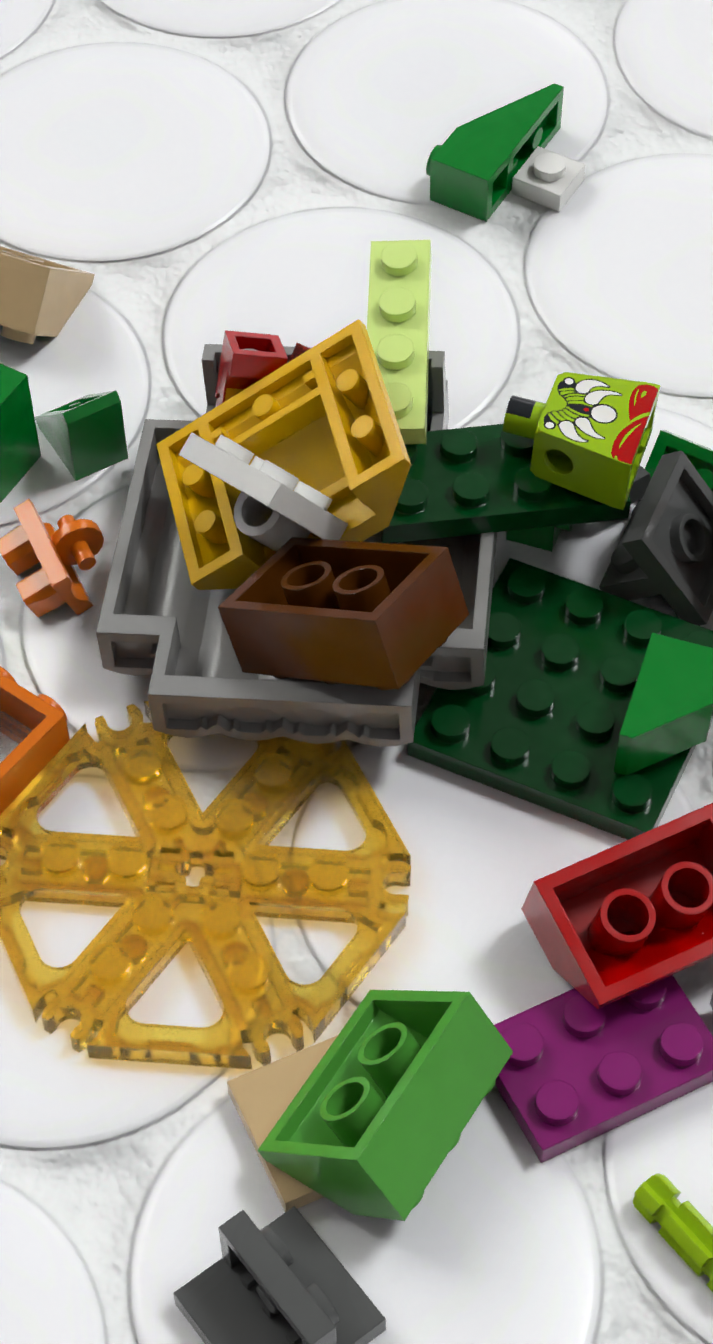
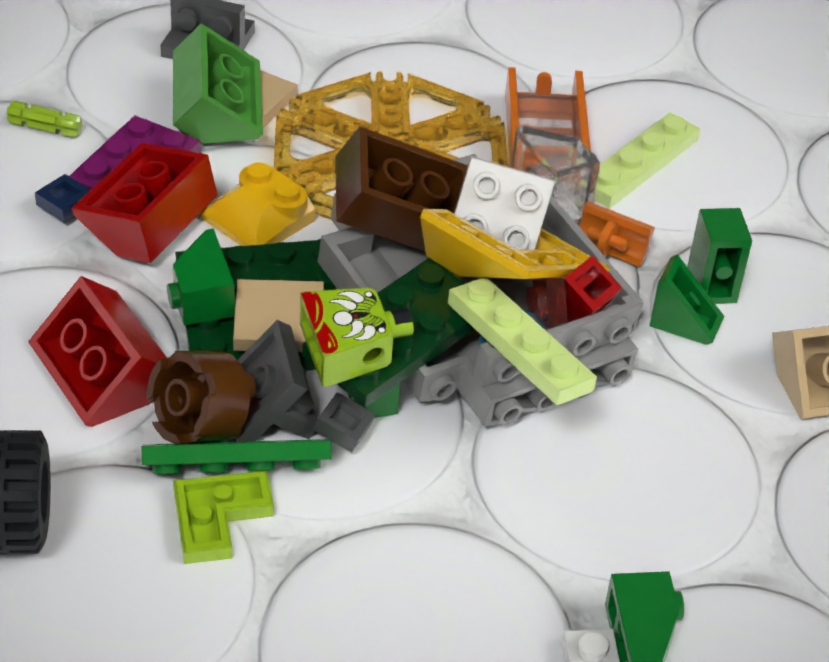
camera: 140 degrees right, 10 degrees down
(55, 628) = (560, 159): none -> clear slope
(472, 857) = (261, 207): none -> yellow slope
(595, 625) = (264, 302): none -> tan tile

